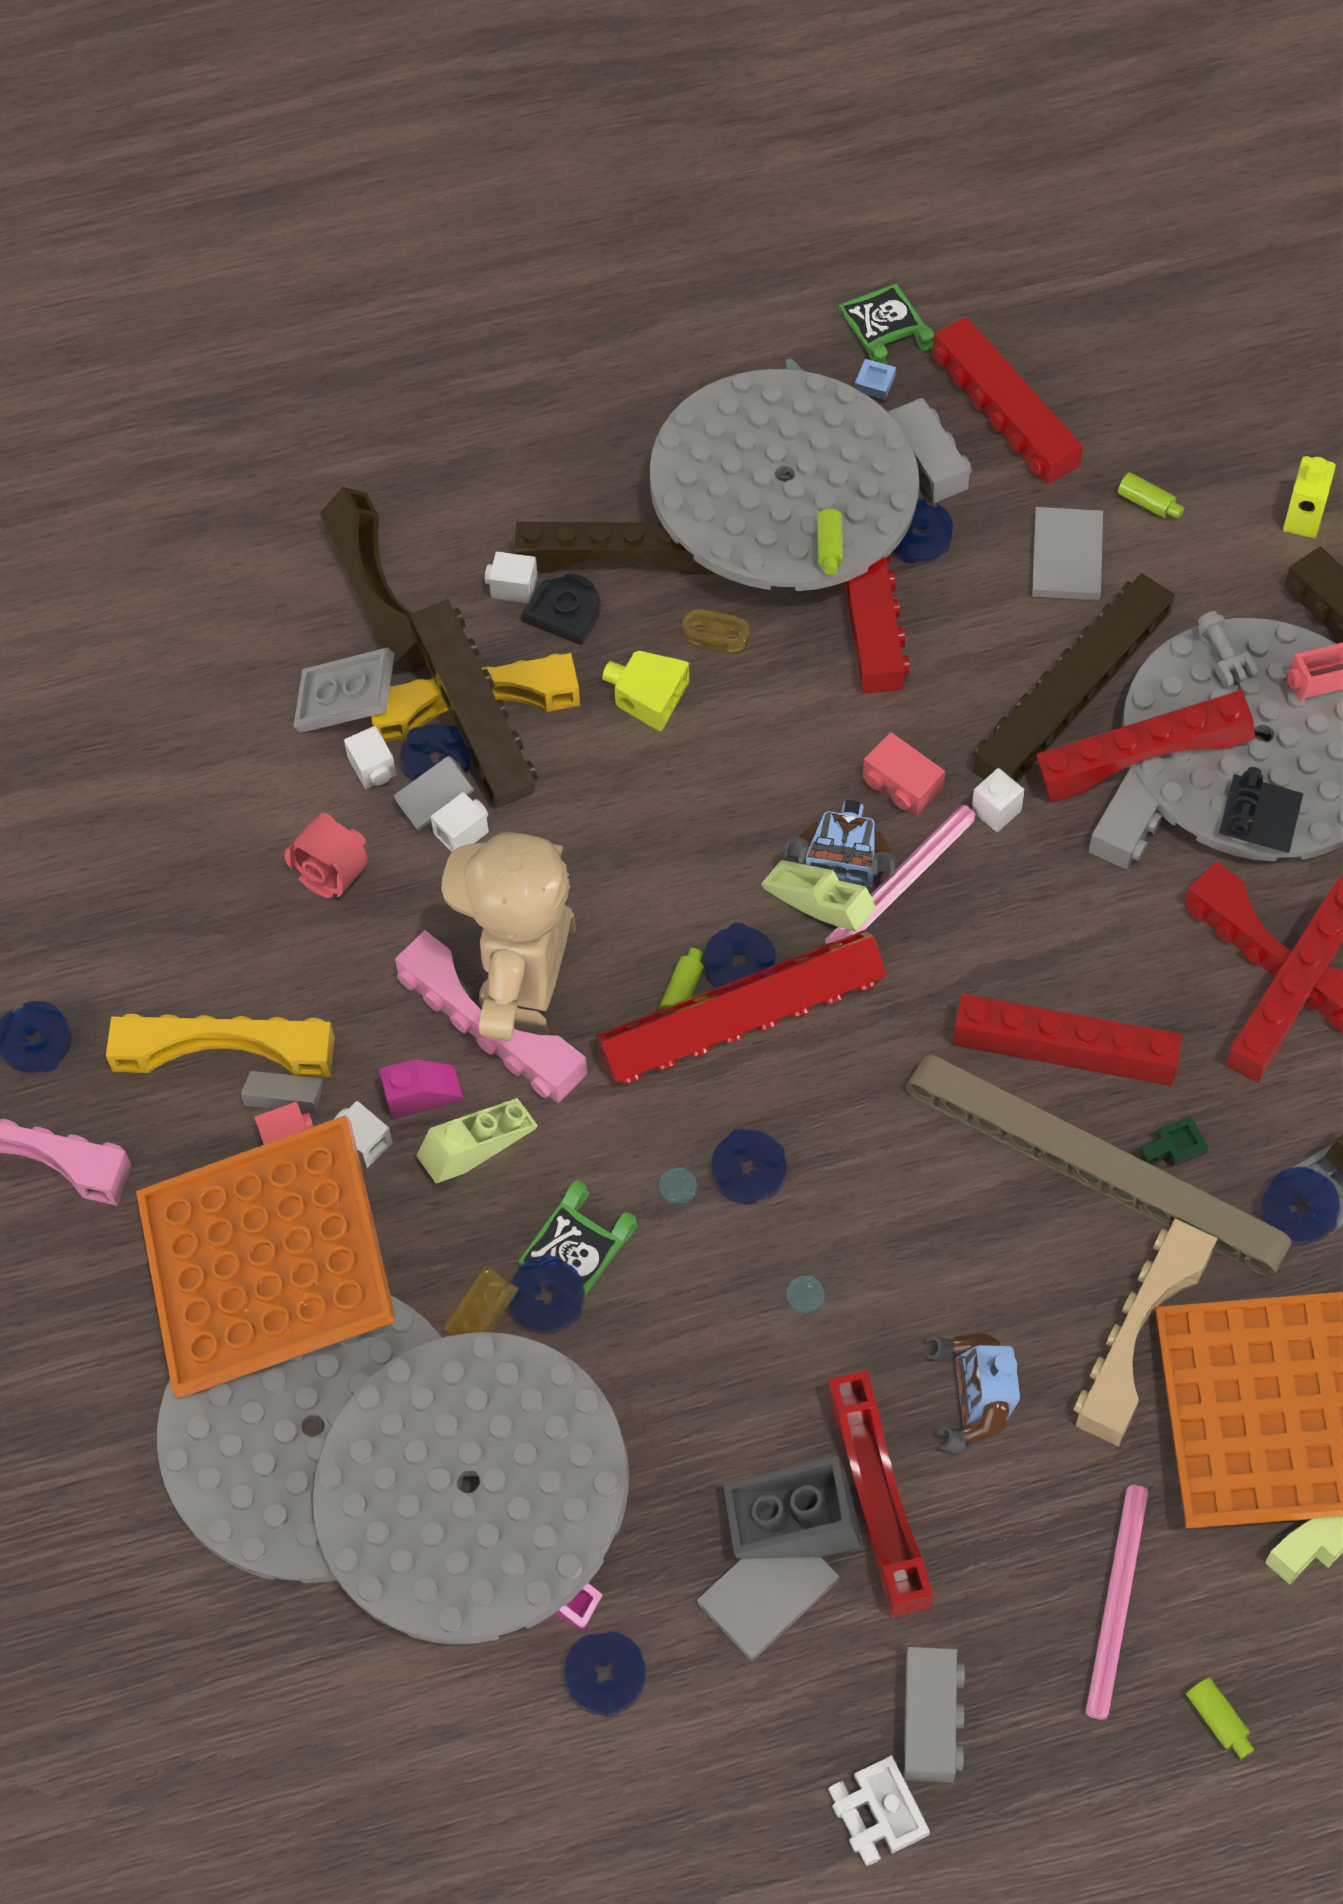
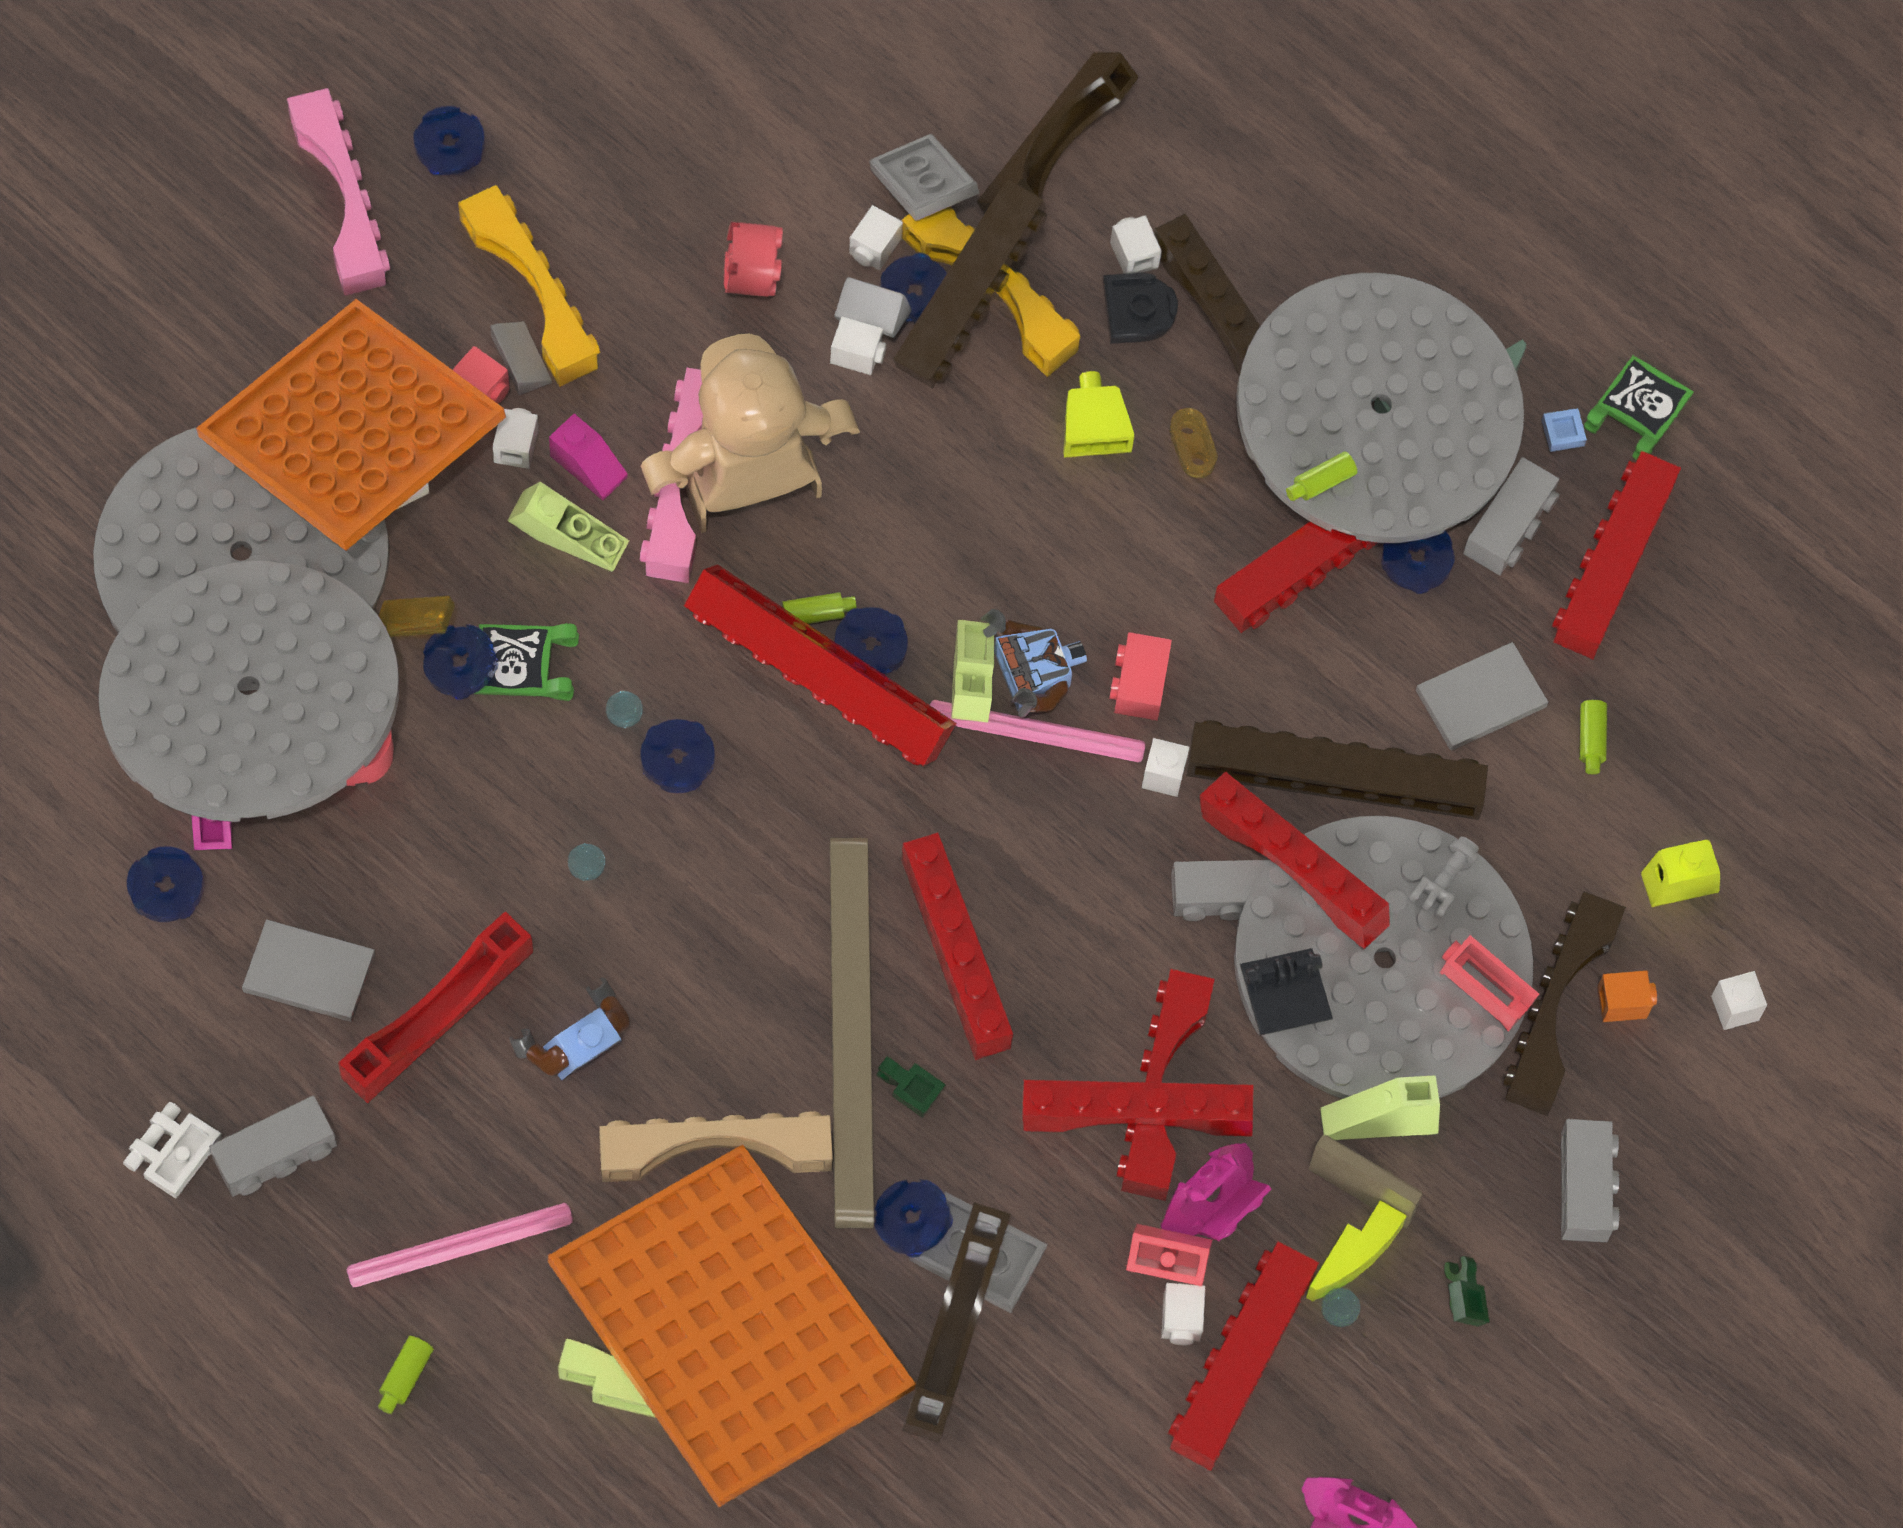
camera: 50 degrees right, 5 degrees up
(793, 1512) = (379, 950): dark grey slope -> none

